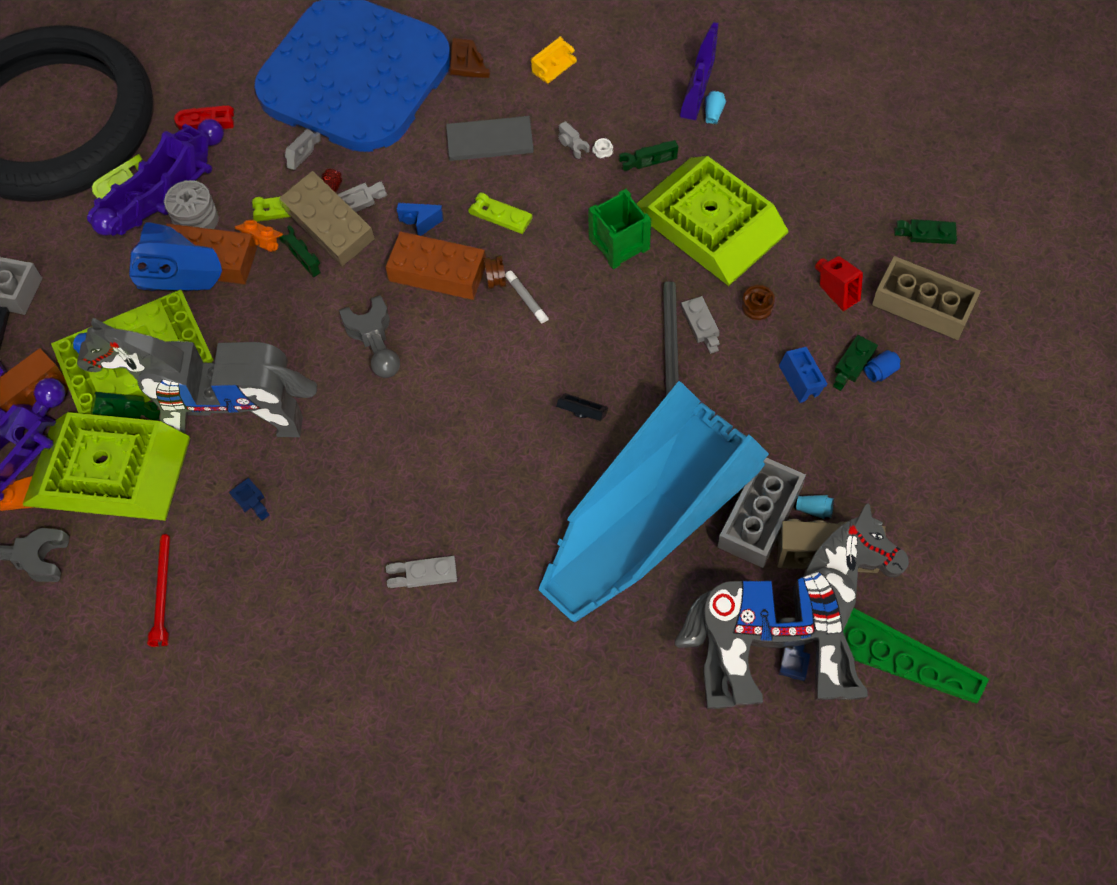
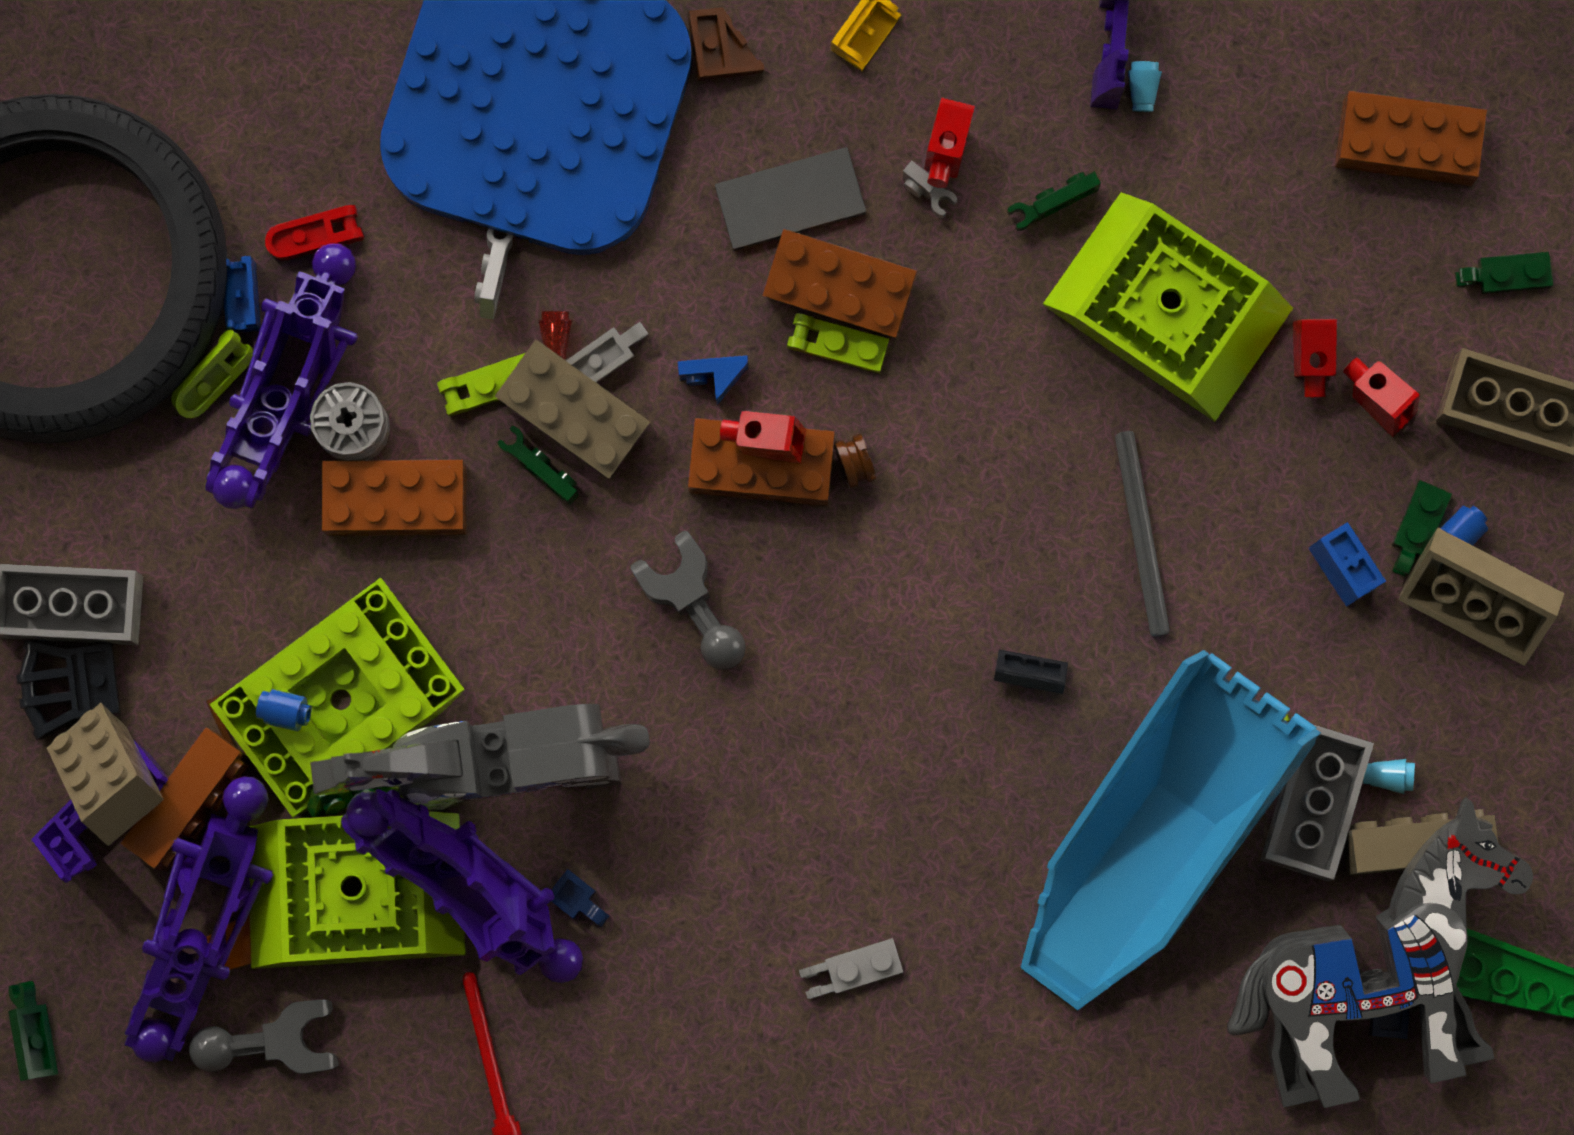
camera: 10 degrees left, 20 degrees up
(152, 138) = (242, 296): none -> blue hinge
(188, 264) = (358, 537): blue piece -> none
(201, 491) = (467, 879): none -> dark purple piece
(263, 235) = (470, 447): orange hinge -> none
(440, 236) = (780, 436): none -> red torso
(508, 177) = (840, 283): none -> dark orange brick
(528, 299) = (909, 489): light grey bar -> none
(588, 117) = (948, 141): none -> red torso
(603, 144) = (981, 185): white plate -> none
(619, 228) = (1036, 341): green container -> none
(701, 322) = (1183, 493): light grey plate -> none
(754, 309) = (1278, 443): reddish brown wheel -> none
(798, 250) = (1316, 337): none -> red torso
(874, 151) = (1410, 138): none -> dark orange brick
(891, 400) = (1481, 596): none -> dark tan brick

